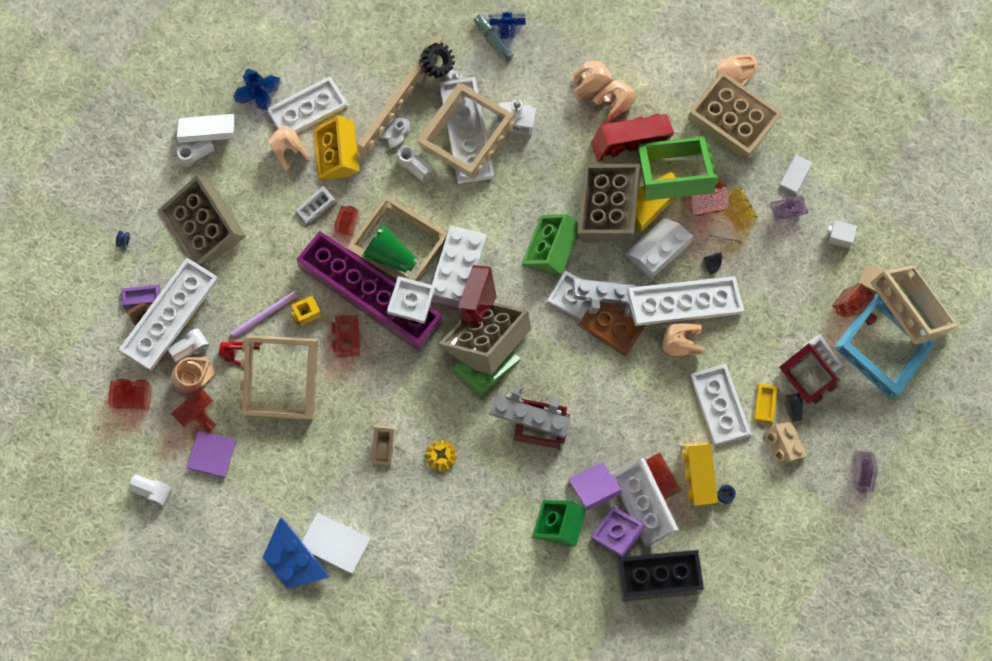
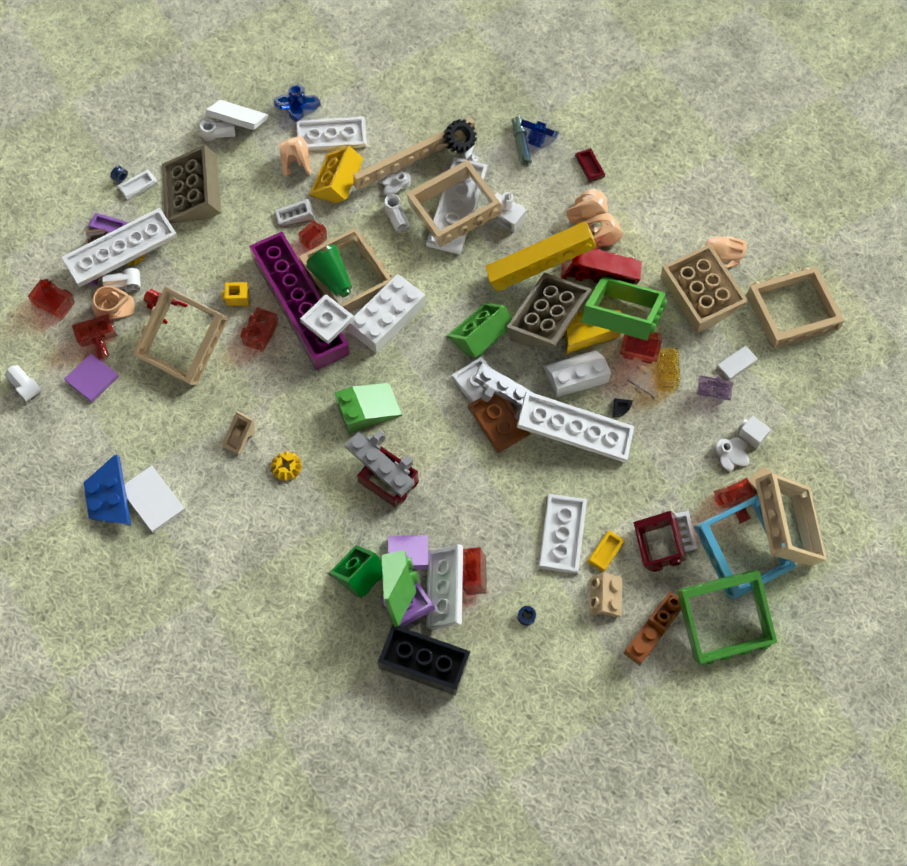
camera: 25 degrees right, 5 degrees down
(146, 241) = (137, 184): none -> white tile
(263, 315) = (203, 283): lavender bar -> none
(477, 295) = (389, 341): dark red slope -> none
(490, 342) = (379, 379): dark tan slope -> none
(569, 34) = (590, 165): none -> dark red tile
(576, 151) = (540, 256): none -> yellow brick
(605, 515) = (398, 583): none -> bright green slope
(675, 340) = (549, 459): light nougat helmet -> none
(699, 473) = (509, 584): yellow wedge -> none
(794, 406) = (631, 565): black cone -> none
(800, 119) = (804, 332): none -> tan window
(834, 262) = (734, 455): none -> white plate
(841, 454) = (654, 629): none -> dark orange slope
(864, 471) = (668, 654): slope -> none
(925, 435) = (745, 647): none -> bright green window

